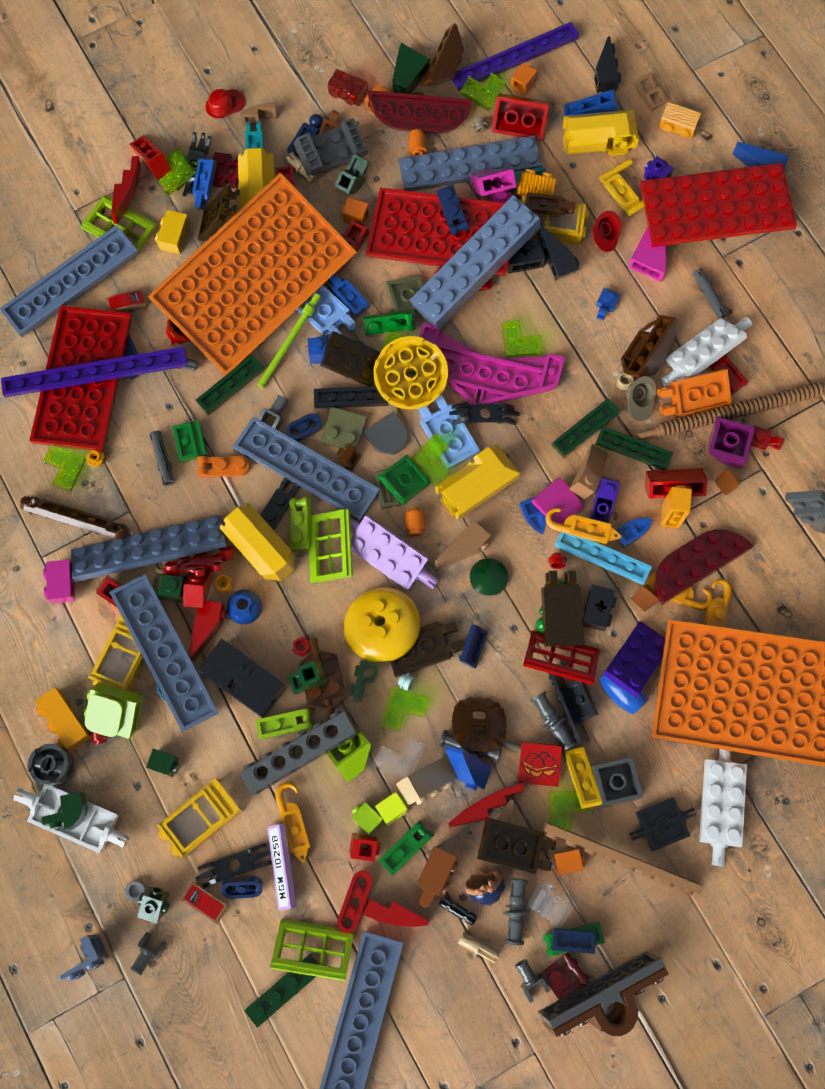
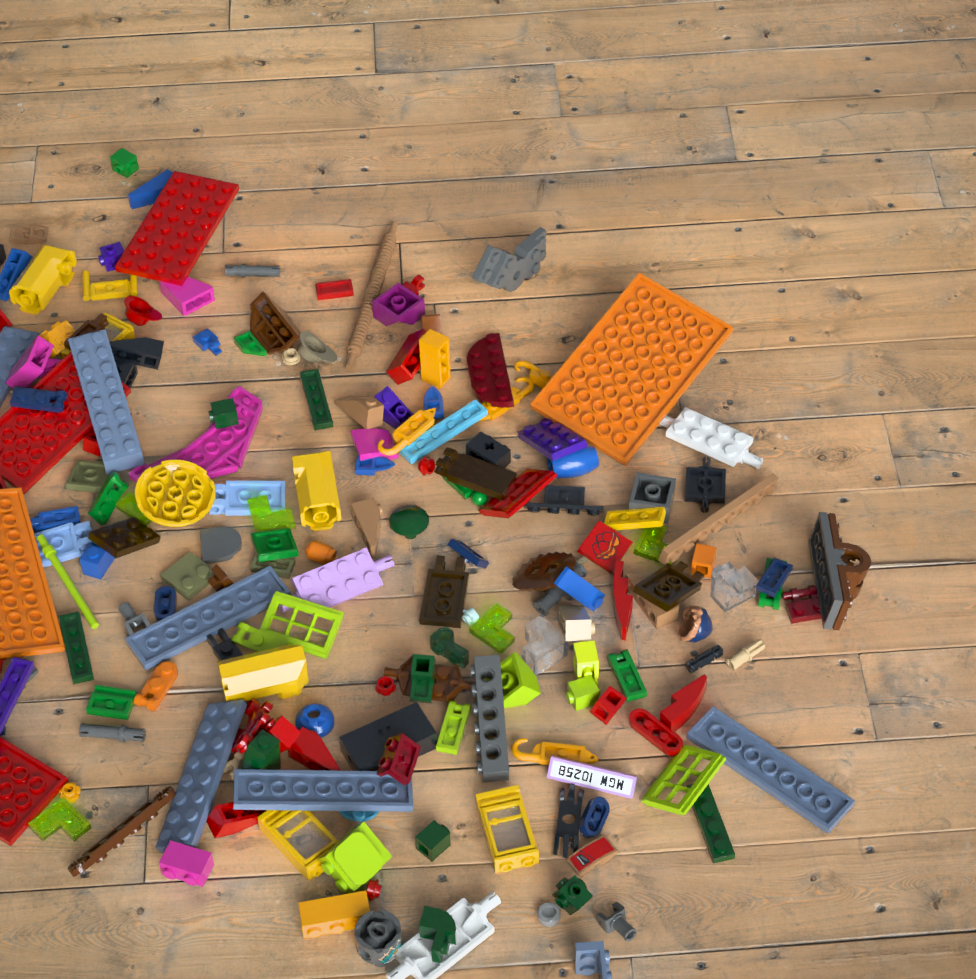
camera: 65 degrees left, 25 degrees down
(216, 699) = (399, 758): none -> dark red bracket
(348, 397) = (160, 557): black plate -> none
(394, 636) = (406, 629): yellow brick -> none
(435, 874) = (663, 653): dark orange hinge -> none
(472, 413) = (250, 468): black piece -> none
(517, 911) = (727, 612): dark grey piece -> none
(518, 345) = (193, 416): clear neon green plate -> none
(520, 362) = (223, 413): none -> dark green brick
(529, 978) = (794, 627): dark grey piece -> none
(554, 721) = (570, 521): dark grey piece -> none
(622, 338) = (249, 344): none -> green tile
(634, 448) = (358, 374): dark green plate -> none
(644, 597) = (499, 419): dark orange slope -> none
(679, 120) = (74, 225): light orange brick -> none
(696, 393) = (339, 312): orange tile -> none
(705, 348) = (302, 292): white plate -> none
(779, 115) = (124, 162): none -> green brick

